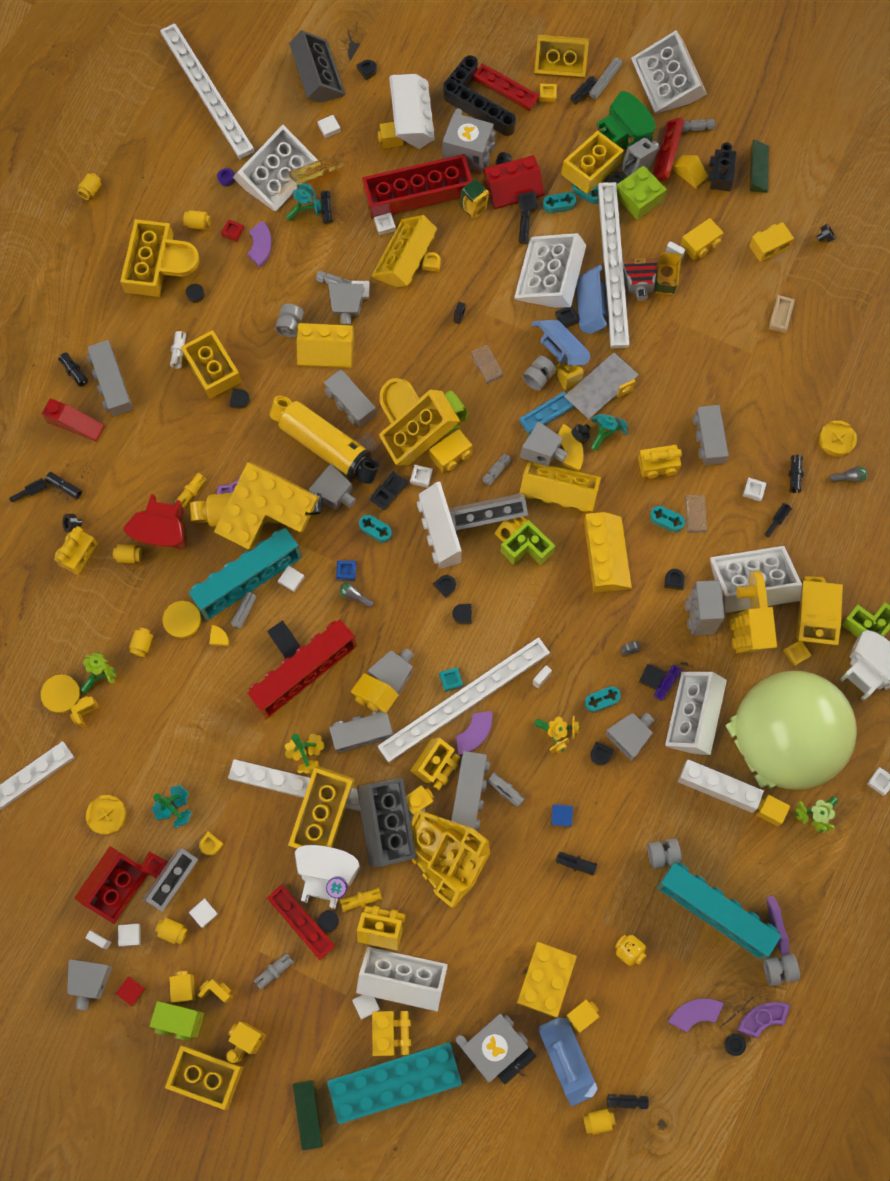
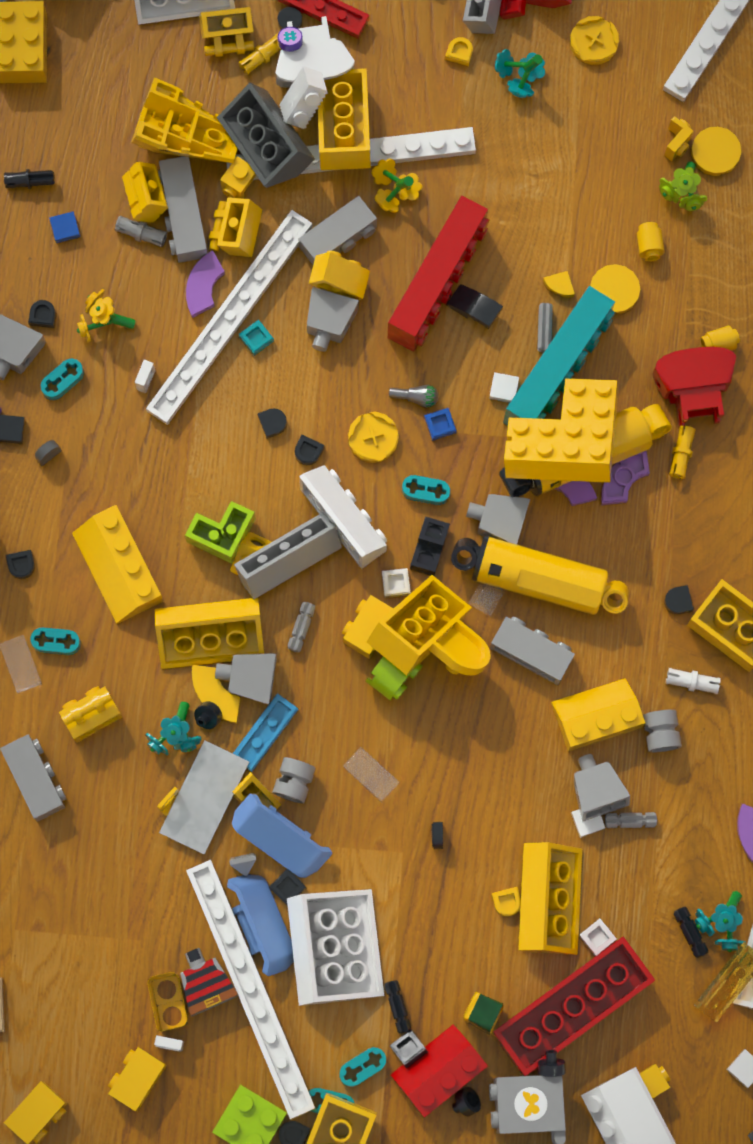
camera: 155 degrees right, 5 degrees up
(254, 346) = (693, 681): none -> white pin
(345, 835) = (303, 97): none -> white brick
(396, 578) = (373, 437): none -> yellow tile
(446, 148) = (551, 1065): none -> black tile
(493, 814) = (144, 192): none -> yellow brick
(590, 338) = (243, 863): none -> light grey slope

